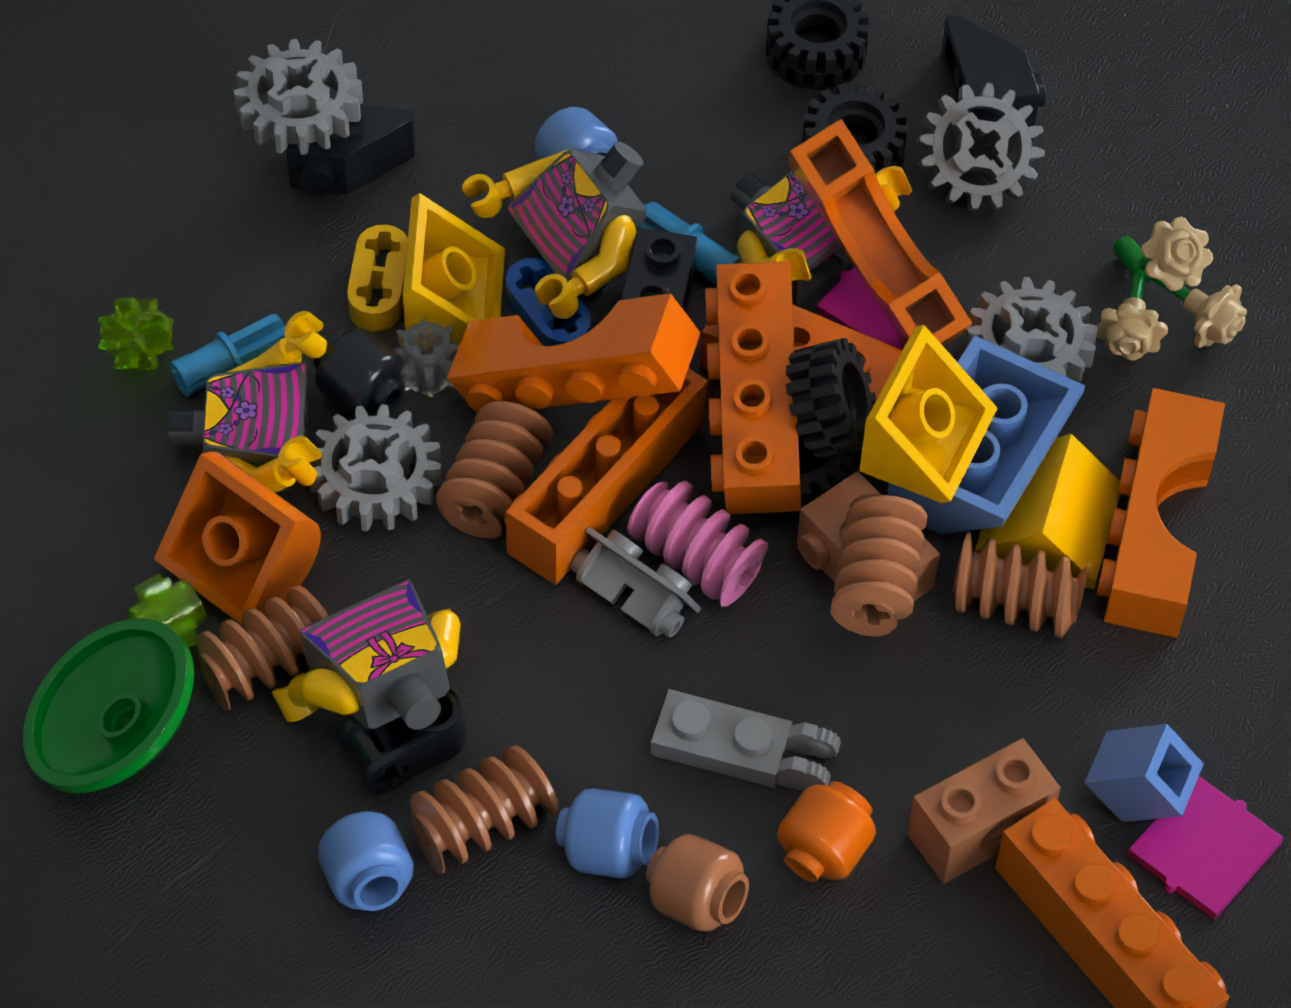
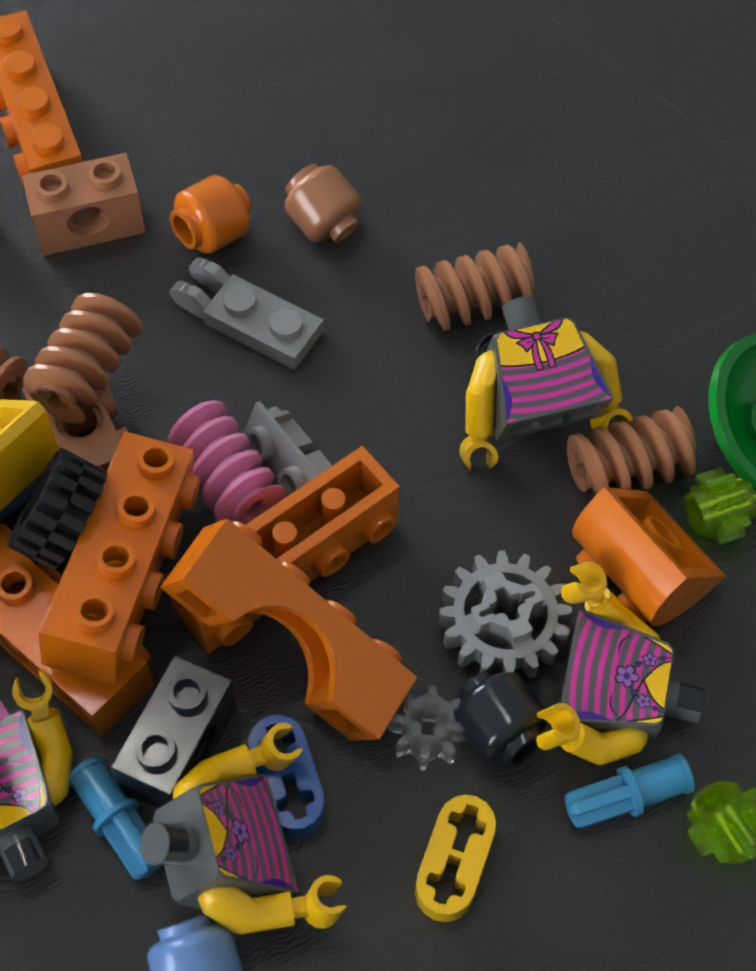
camera: 165 degrees left, 5 degrees up
(365, 861) = (576, 270): medium blue head -> none
(449, 270) = (380, 819): yellow slope -> none
(493, 467) = (393, 577): nougat piece -> none
(608, 833) = (380, 252): medium blue head -> none

